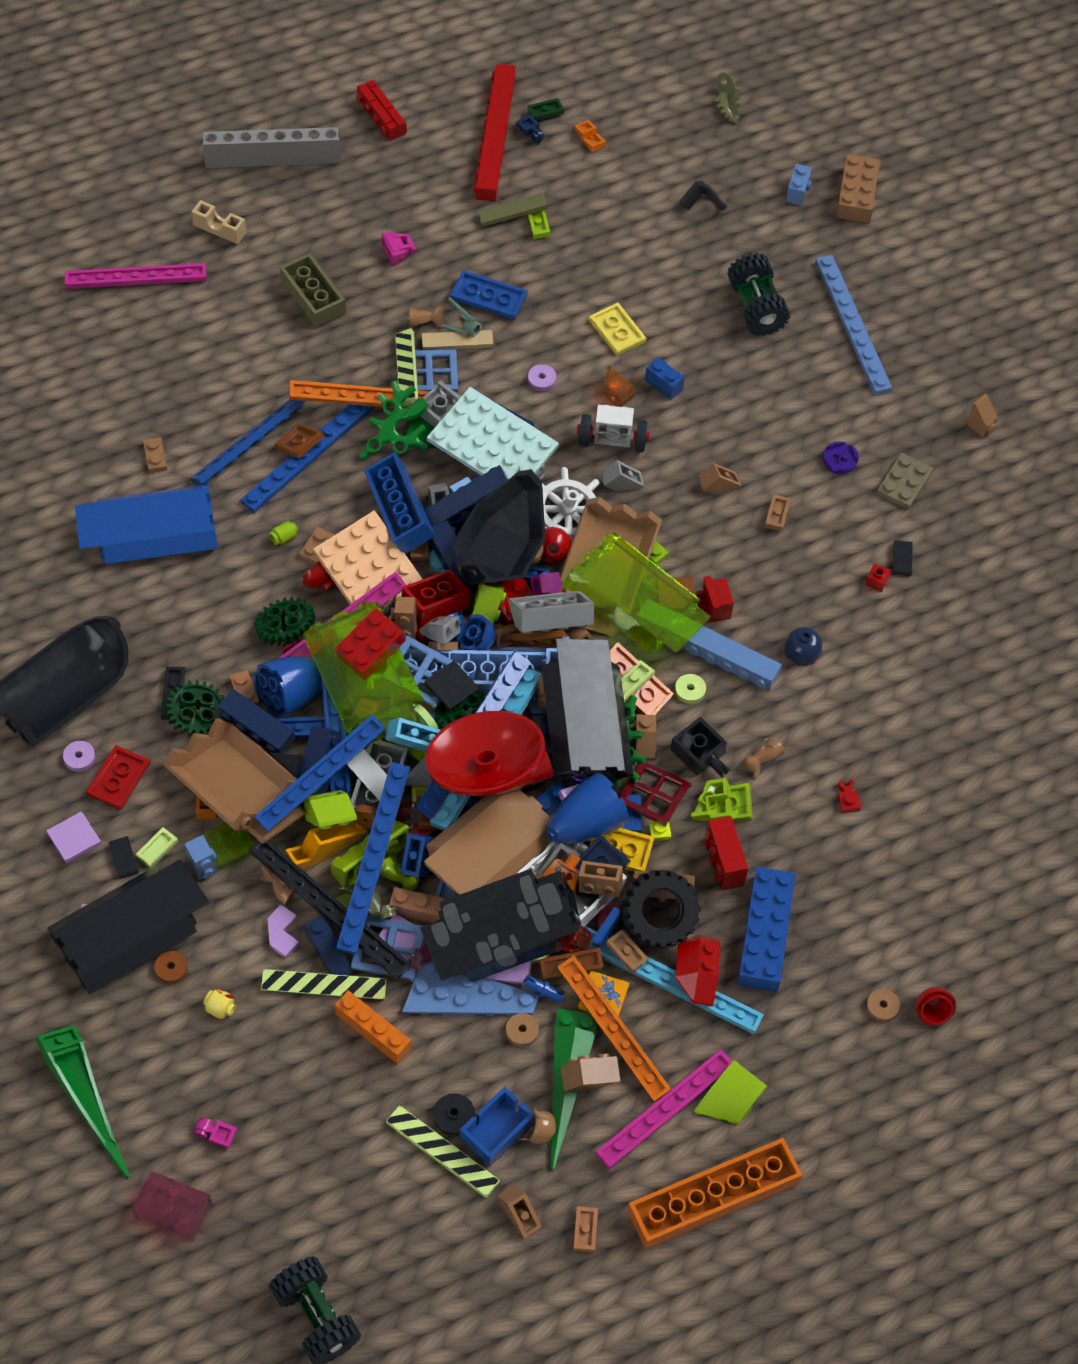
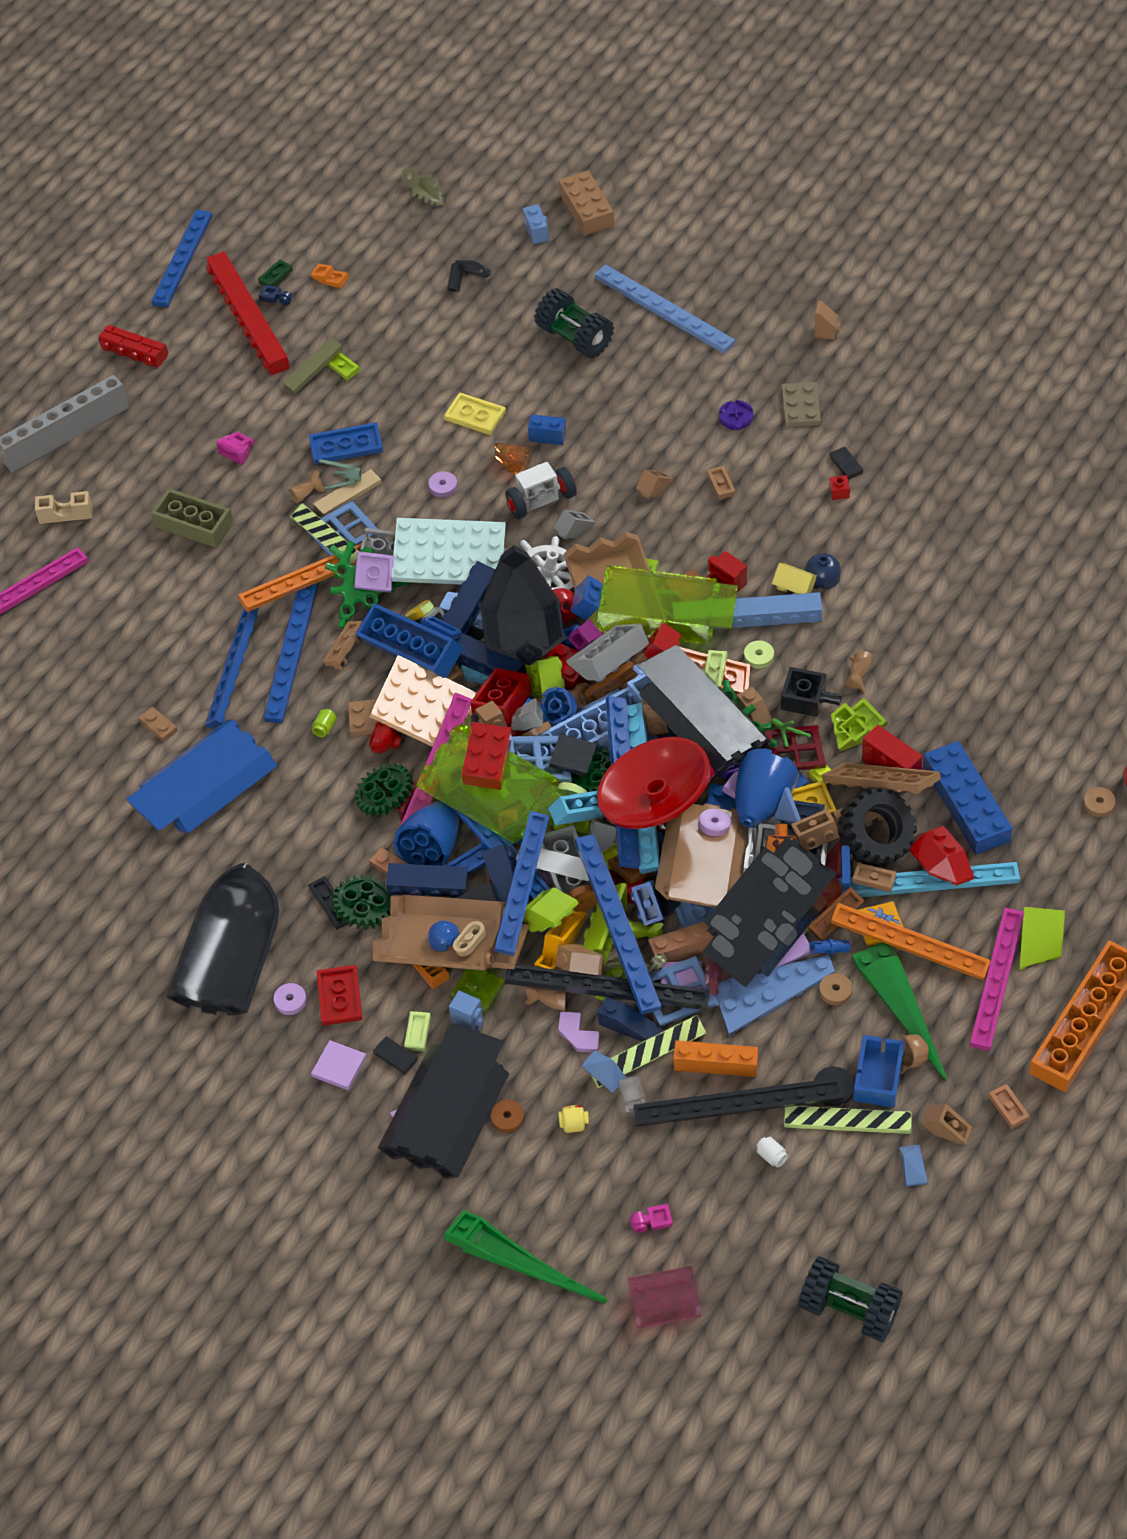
camera: 25 degrees left, 5 degrees down
(232, 778) = (442, 935): none -> blue hair
(247, 795) = (467, 940): none -> tan plate
(273, 978) = (604, 1070): none -> medium blue slope
(282, 1012) = (631, 1092): none -> clear brick
(299, 440) = (277, 643): dark orange tile -> none
(322, 868) = (579, 959): none -> medium nougat slope
(348, 474) = (343, 645): none -> medium nougat plate
(356, 1138) = (772, 1151): none -> white brick
(362, 1077) = (738, 1102): none -> black plate
(415, 424) = (373, 572): none -> lavender tile
(431, 507) = (441, 627): none -> blue tile
(433, 480) = (420, 610): none -> piece
(465, 1227) = (913, 1165): none -> medium blue slope
(481, 53) = (181, 258): none -> blue plate
(528, 813) = (714, 822): none -> lavender piece
(573, 551) = (587, 597): none -> blue brick
(590, 1072) = (922, 983): medium nougat brick -> none
(593, 844) = (787, 809): none -> medium blue slope
(608, 628) = (661, 640): none -> red brick
(658, 768) = (784, 727): none -> bright green plant
(697, 866) = (881, 777): none -> medium nougat plate
(770, 639) = (793, 579): none -> light yellow brick
(848, 799) = (948, 665): red plate -> none

